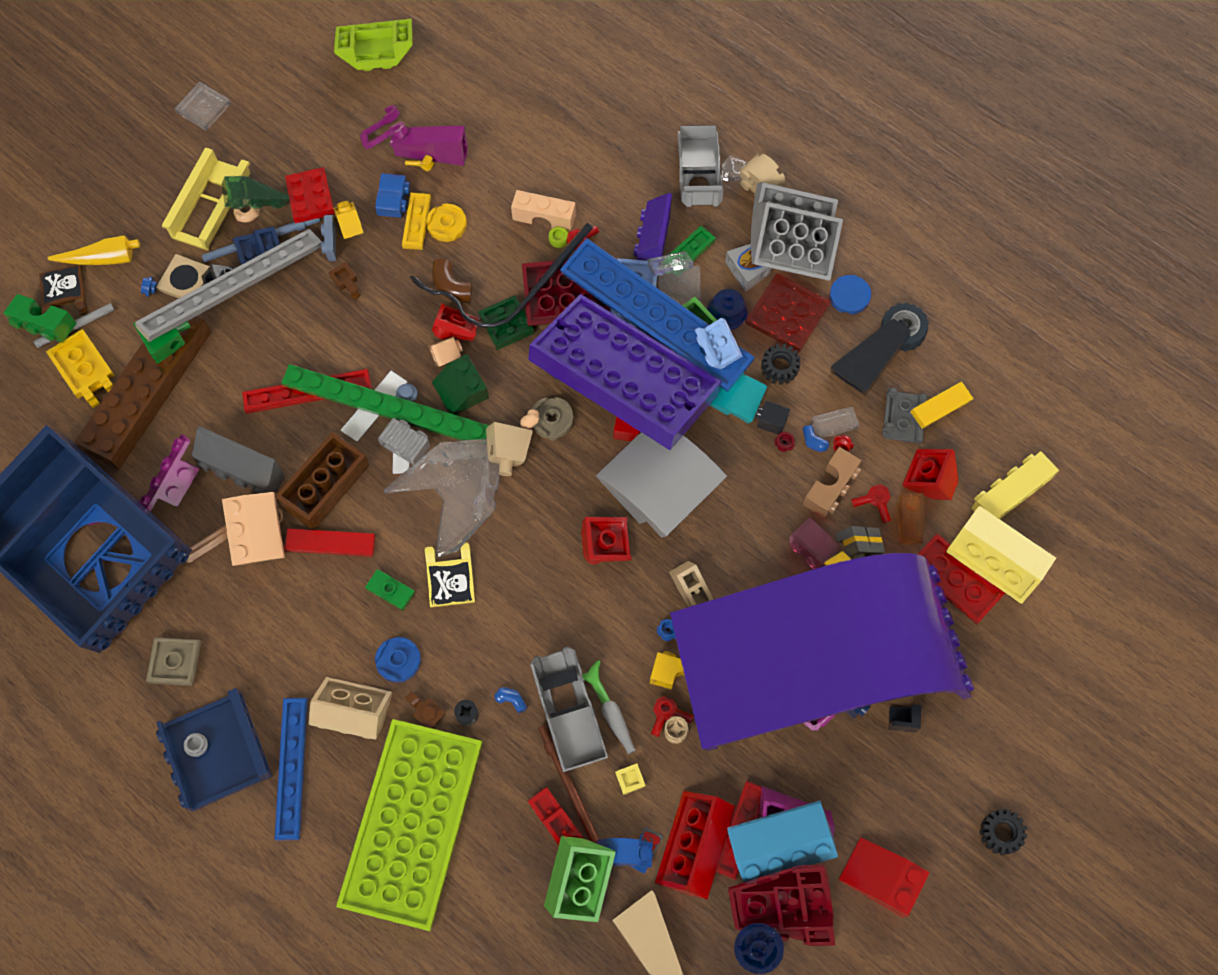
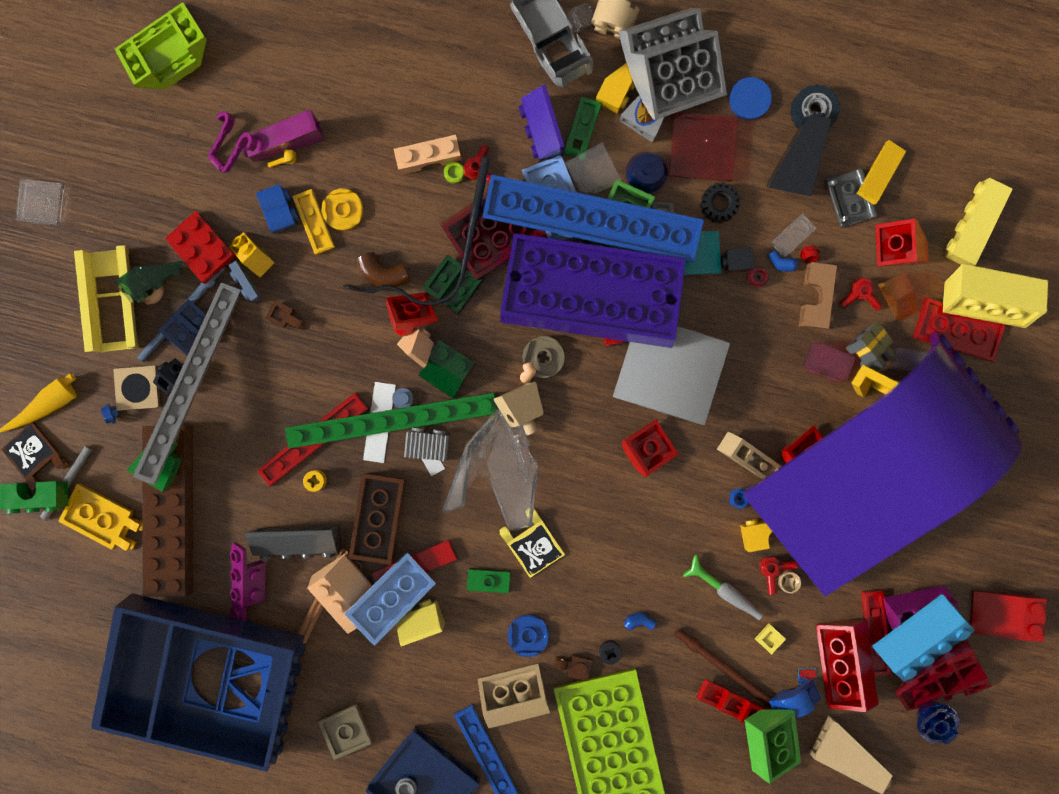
camera: 25 degrees left, 20 degrees up
(287, 429) = (317, 477): none -> yellow wheel
(289, 551) = (390, 599): none -> light blue plate
(304, 591) = (420, 622): none -> light yellow slope
(574, 728) = (705, 622): light grey piece -> none
(670, 263) = (575, 154): clear tile -> none
(718, 344) = (668, 226): light blue bracket -> none
(733, 233) = (615, 89): none -> yellow slope

